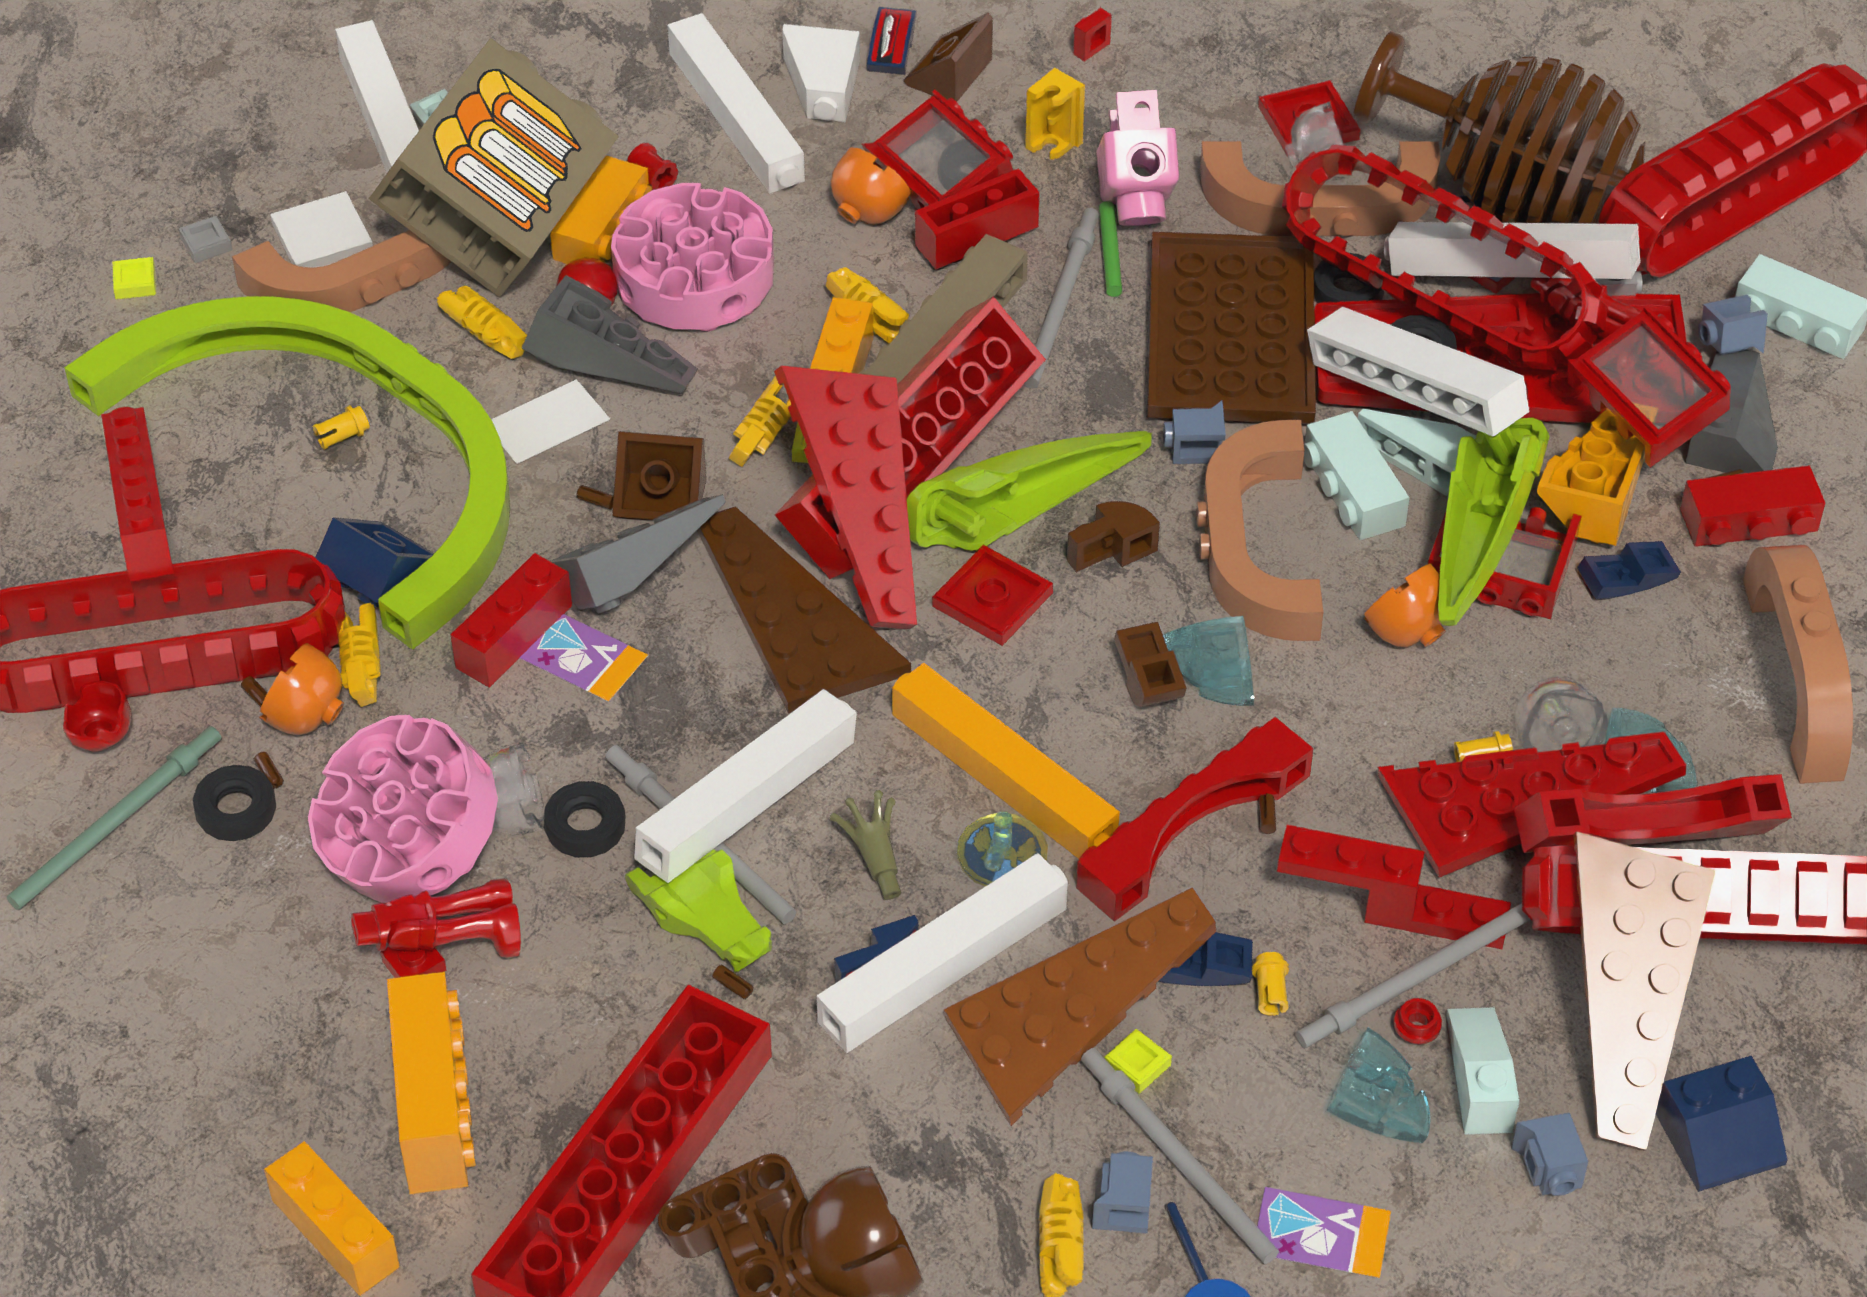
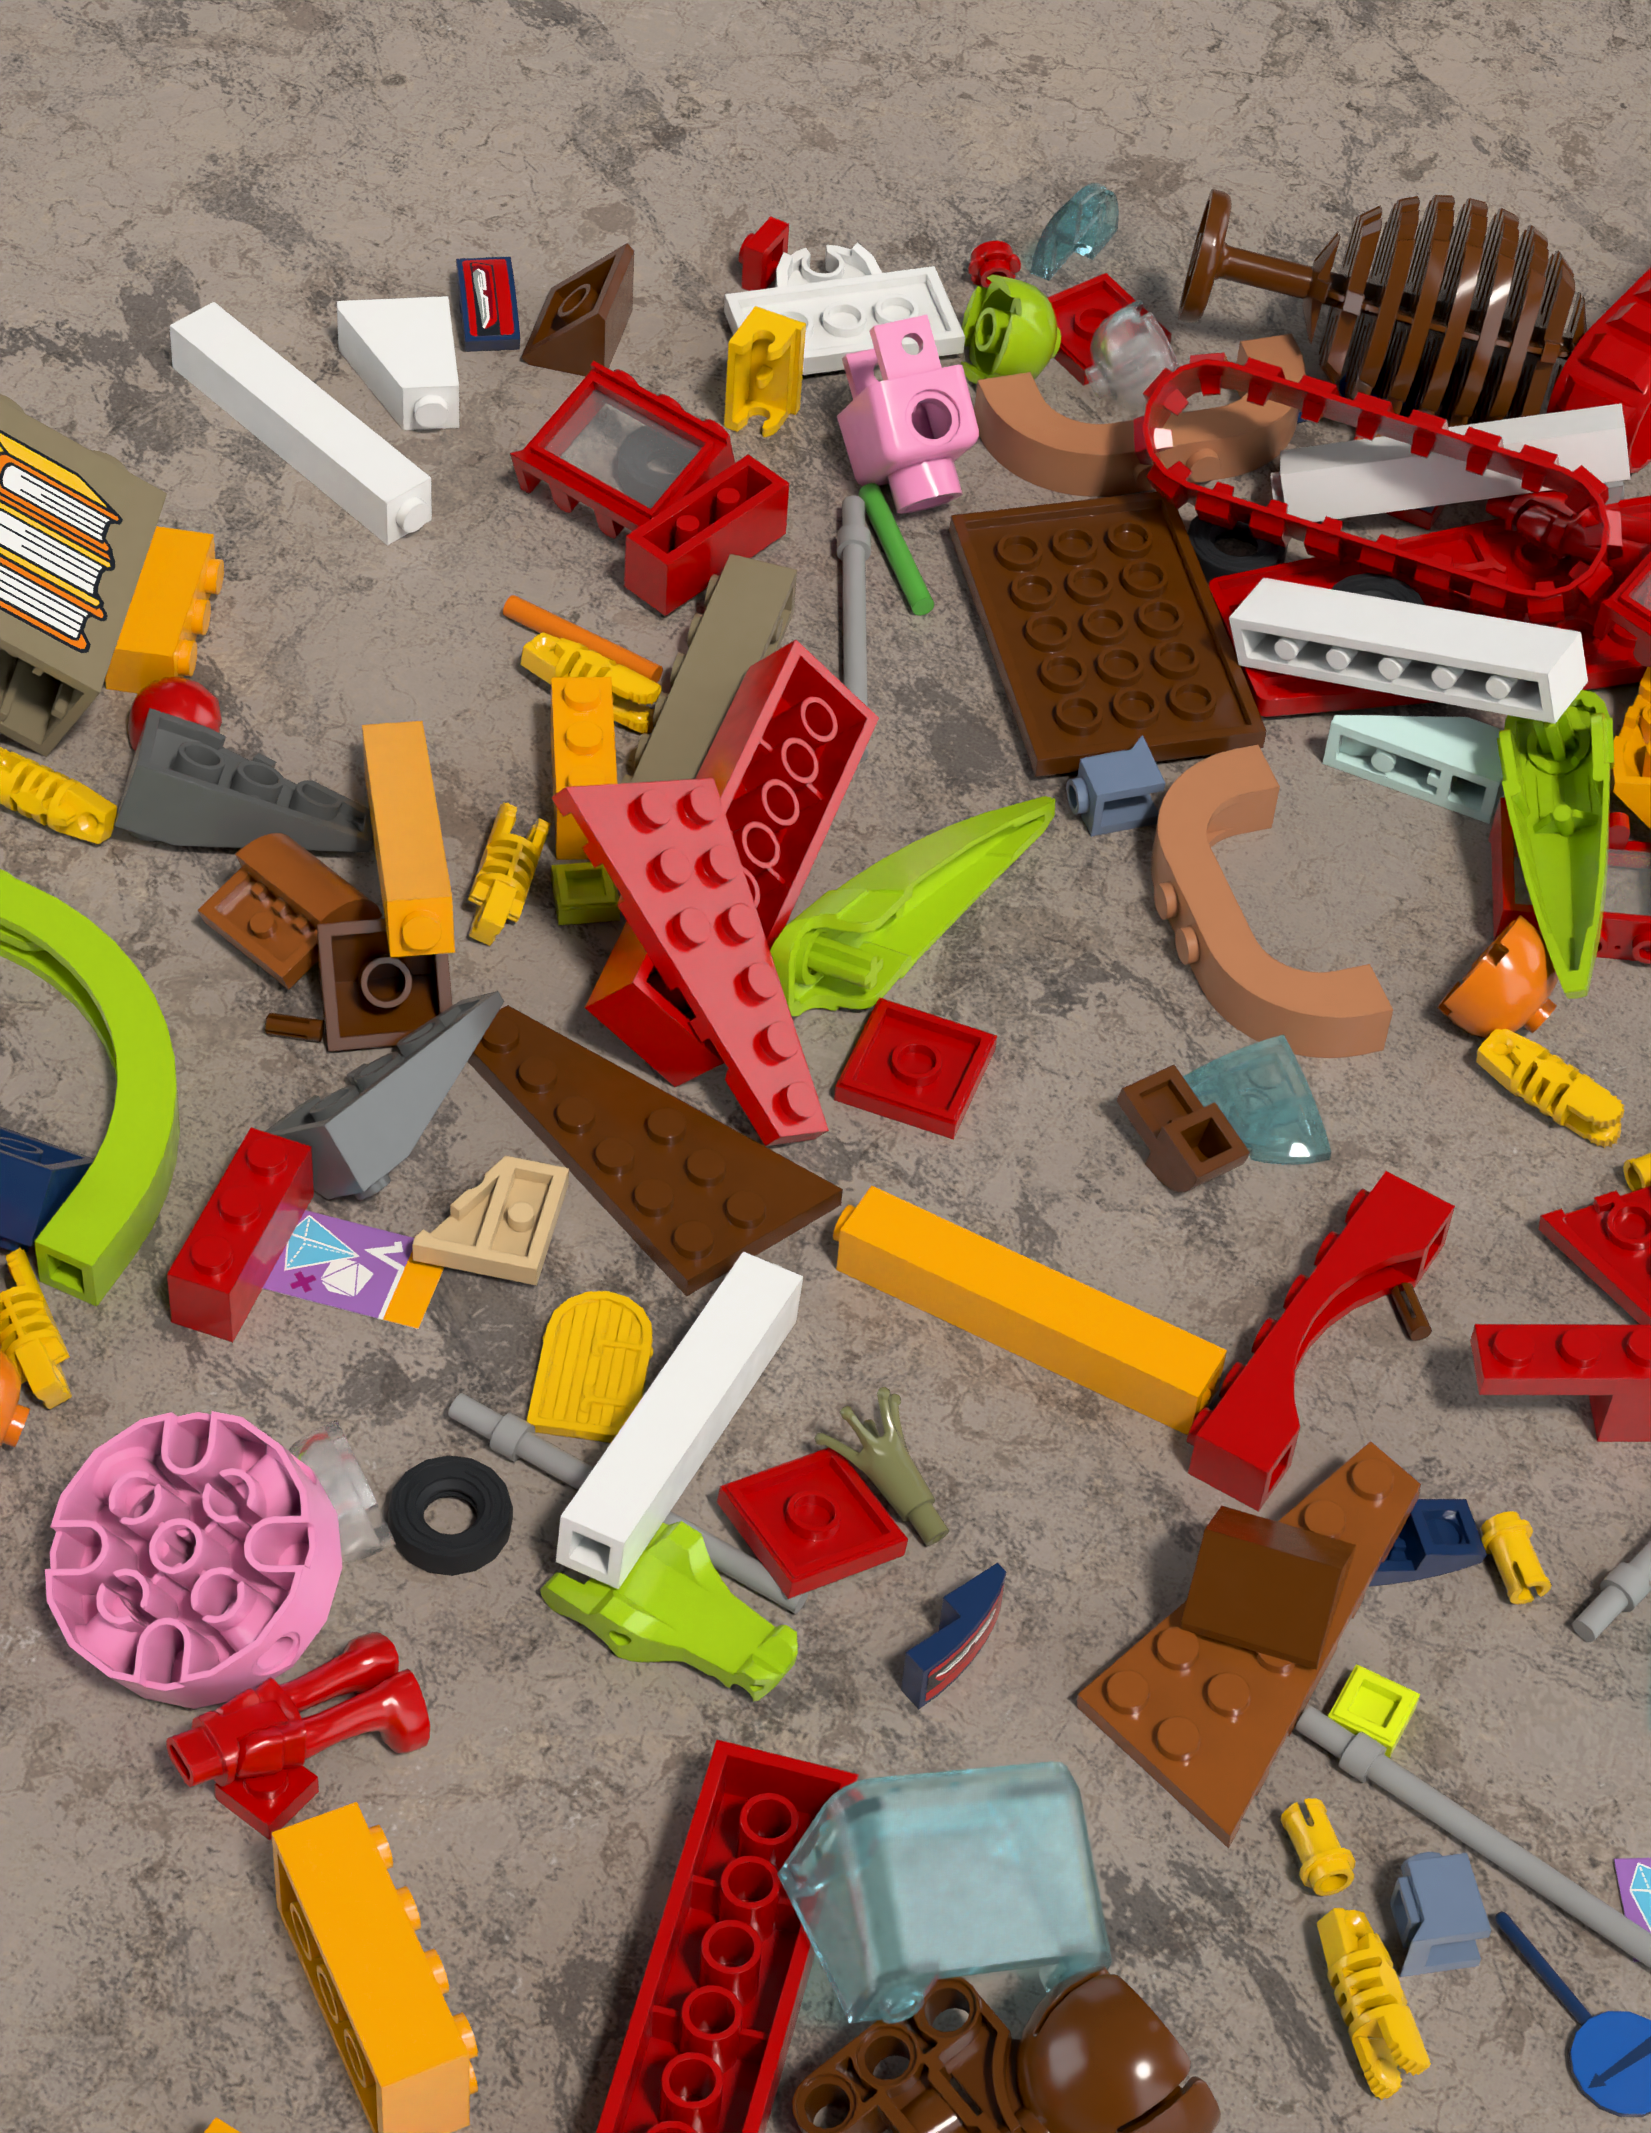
camera: 20 degrees left, 0 degrees up
(548, 421) = (168, 933): white sticker -> none
(608, 407) = (277, 901): none -> dark orange brick
(660, 171) = (230, 536): red bush -> none
(681, 644) = (500, 1224): none -> tan wing
(693, 256) = (318, 647): bright pink brick -> none
(696, 386) = (408, 840): none -> light orange brick
(706, 741) = (591, 1367): none -> yellow window
(733, 981) = (755, 1717): reddish brown piece -> none
(800, 1097) = (947, 1882): none -> clear light blue windscreen
(812, 868) = (812, 1521): none -> red tile
(866, 270) = (547, 622): none -> orange bar
(867, 190) = (537, 517): orange cylinder -> none
(942, 952) = (1045, 1610): white brick -> none
(998, 845) = (1066, 1440): clear light blue shield -> none
(1065, 1145) = (1324, 1862): none -> yellow pin
(1083, 962) = (1266, 1586): none -> reddish brown slope
(1118, 531) = (1060, 944): reddish brown brick -> none
(1179, 82) = (848, 303): none -> white plate
(1242, 110) = (1009, 330): none -> lime cylinder
(1252, 63) = (992, 258): none -> red plate
(1318, 41) = (1079, 226): none -> clear light blue brick
(1355, 476) = (1354, 810): light aqua brick -> none
(1422, 684) = (1552, 1086): none -> yellow hinge

